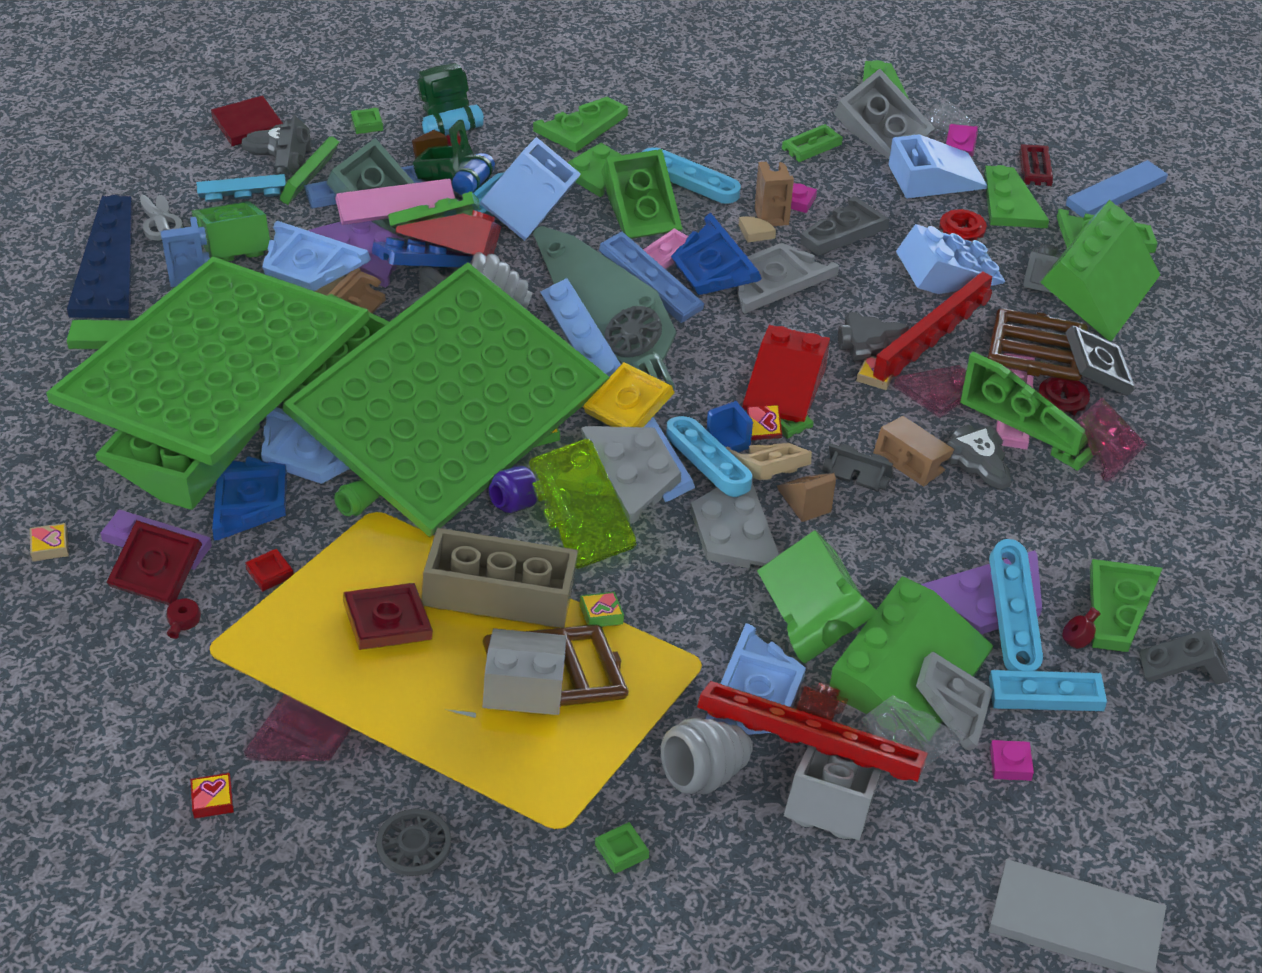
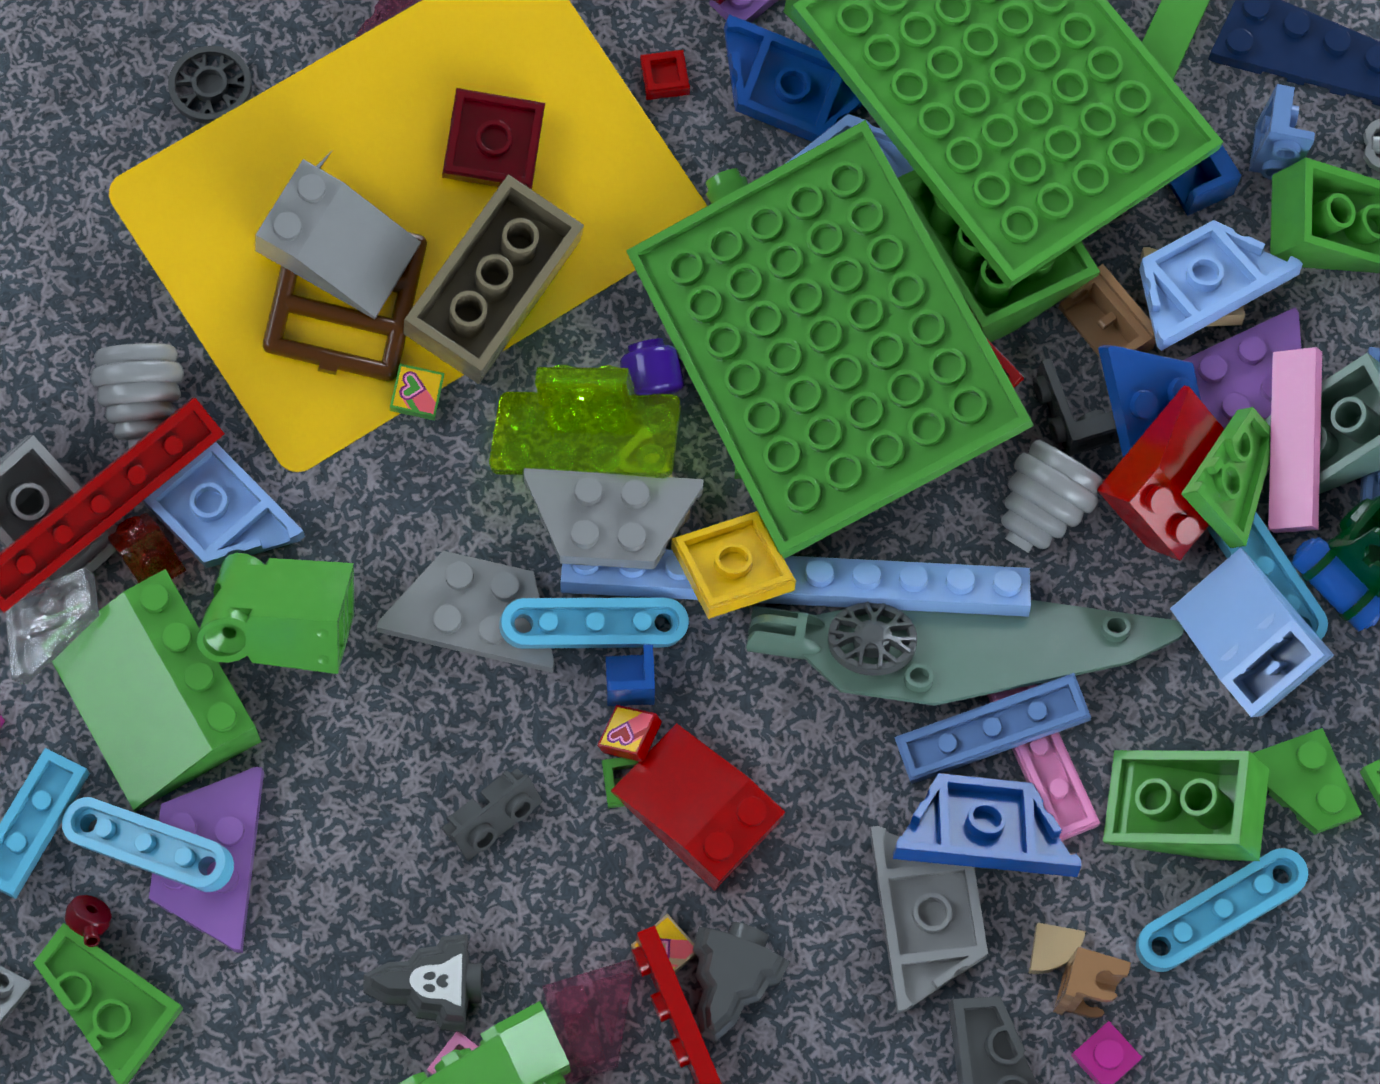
camera: 115 degrees right, 25 degrees up
(622, 848) = (93, 272): bright green tile -> none
(773, 459) = (556, 697): tan wing -> none
(809, 495) = (479, 717): medium nougat slope -> none
(912, 450) = (484, 899): medium nougat hinge -> none
(955, 697) = (70, 702): light grey wing -> none

